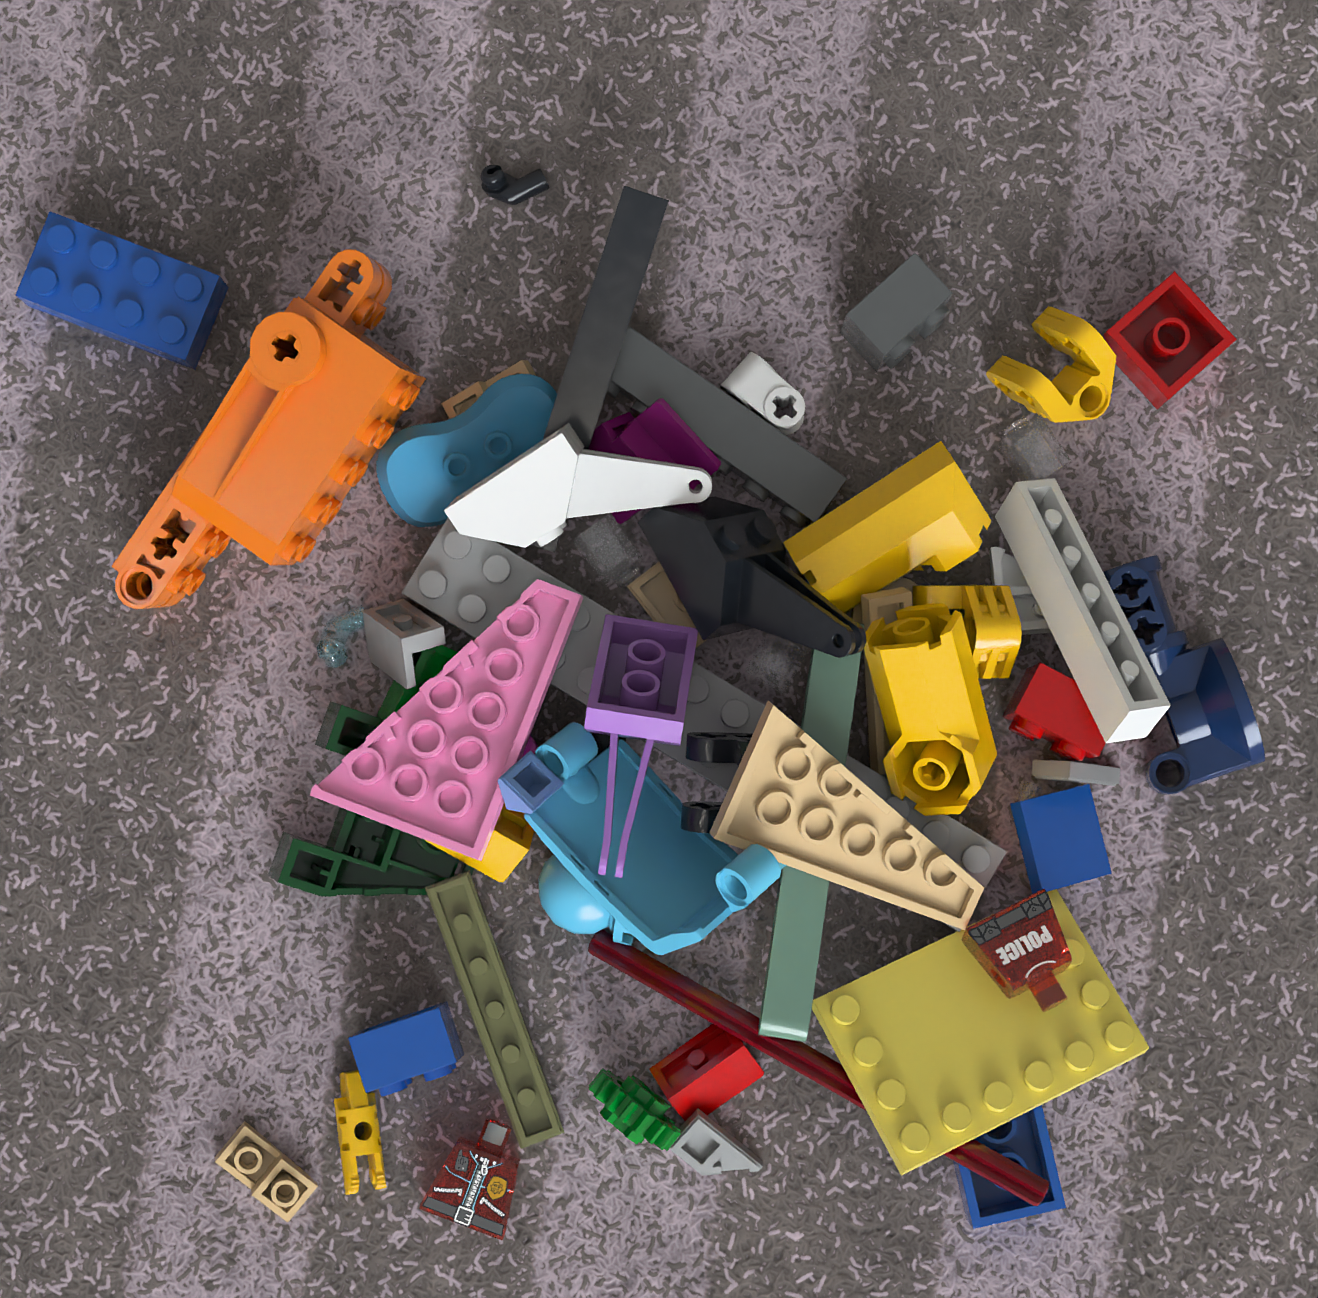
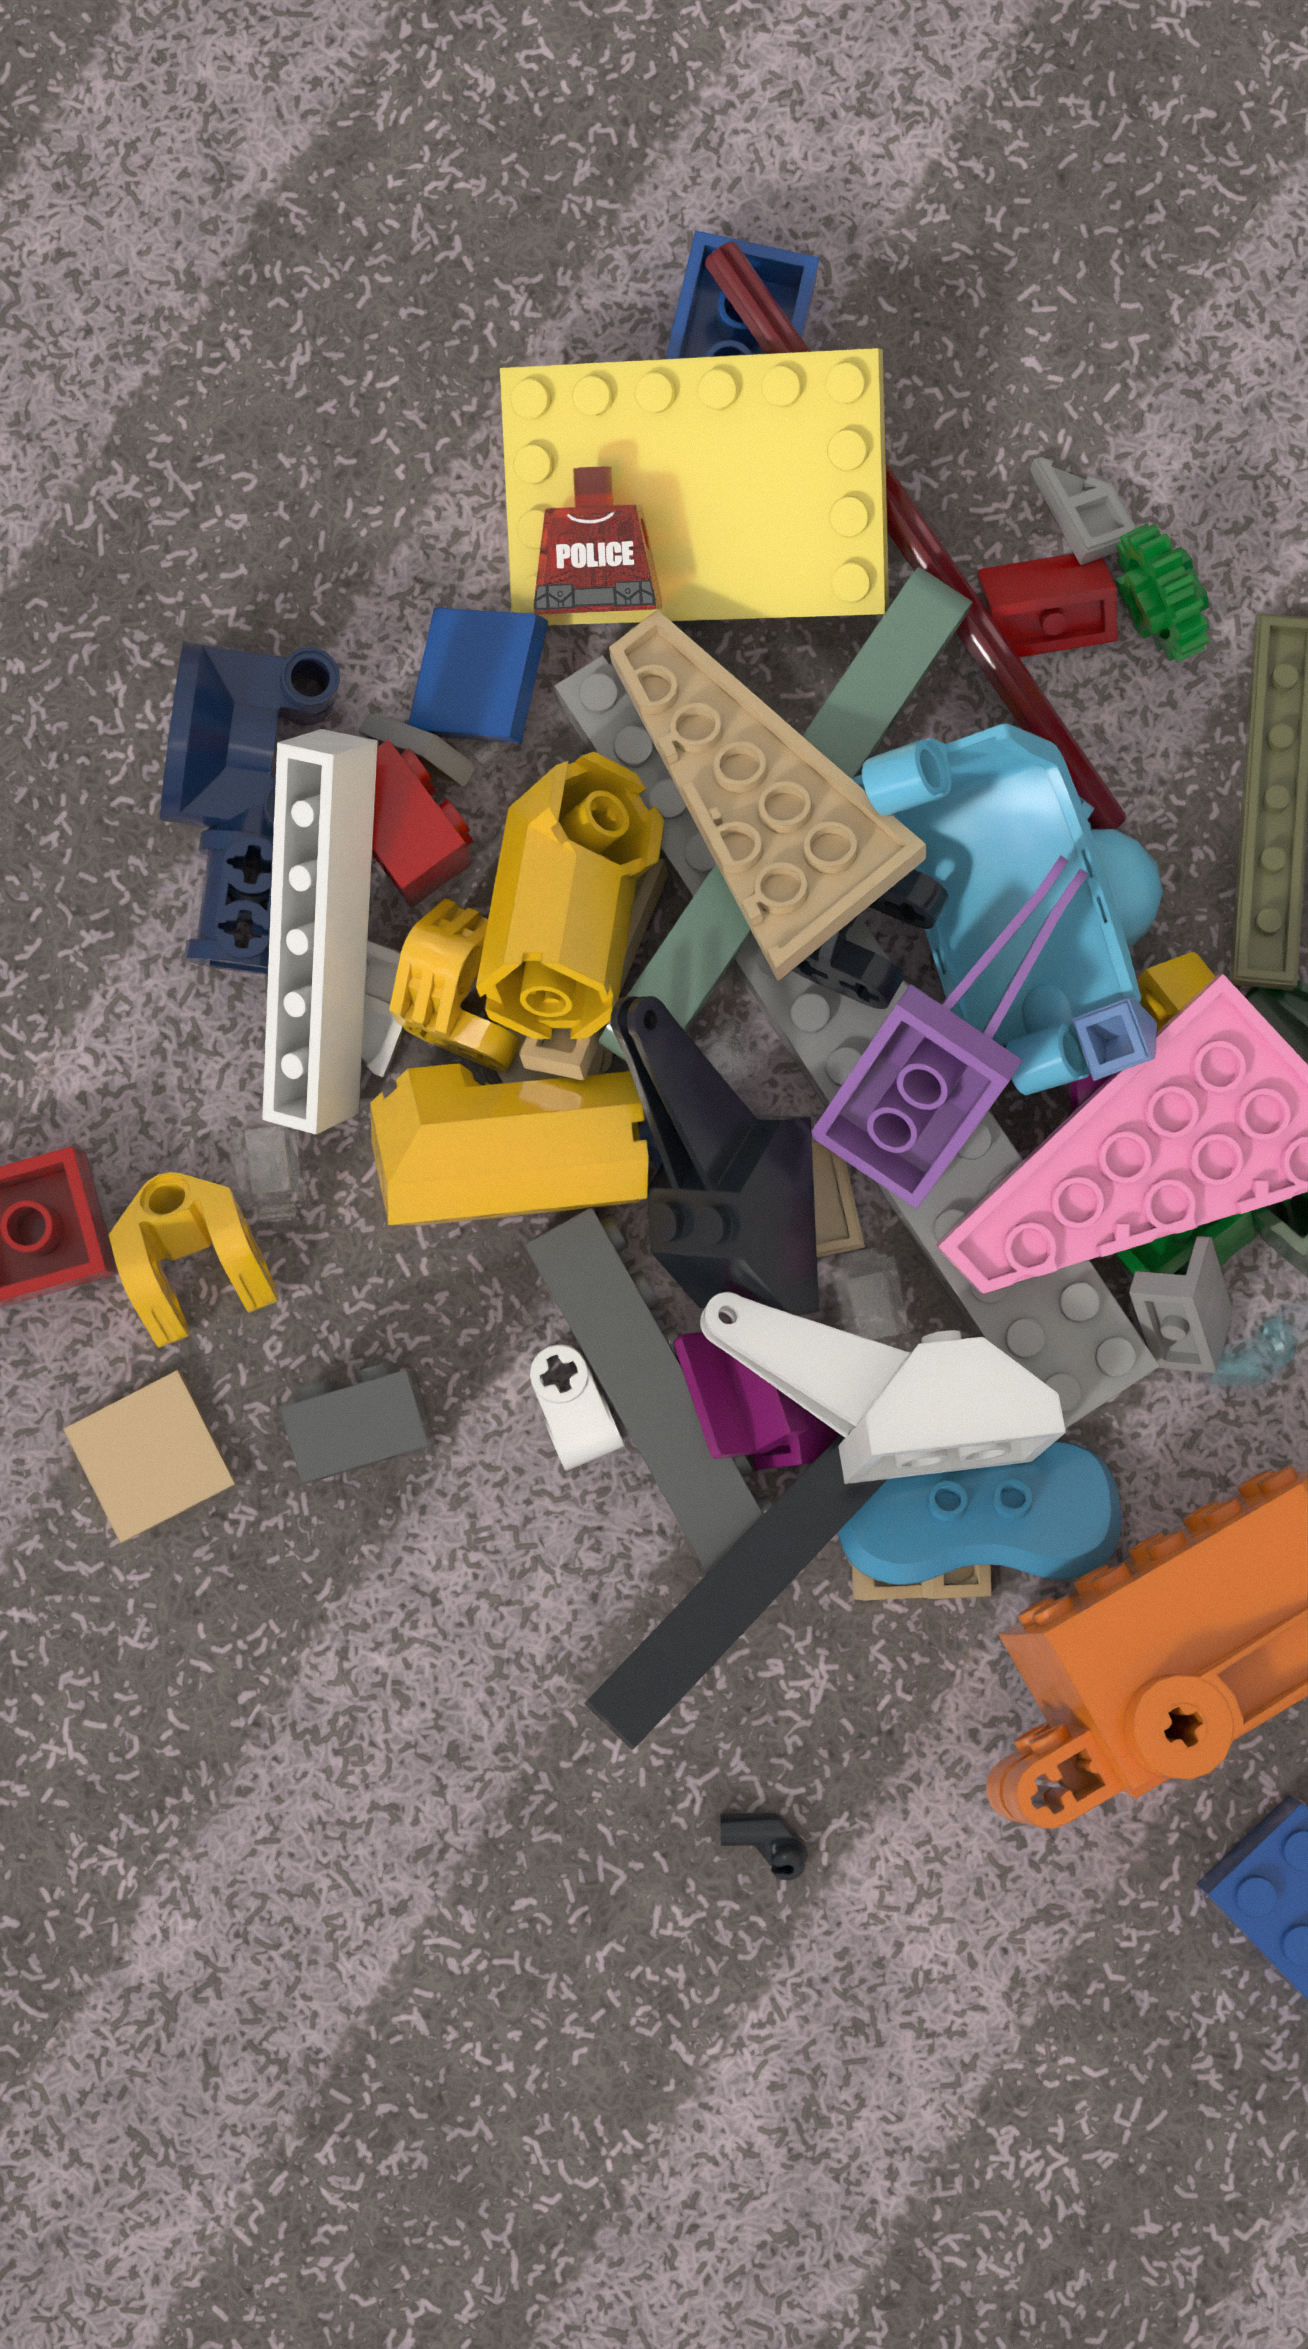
camera: 155 degrees left, 0 degrees up
(1018, 238) = (150, 1456): none -> tan tile

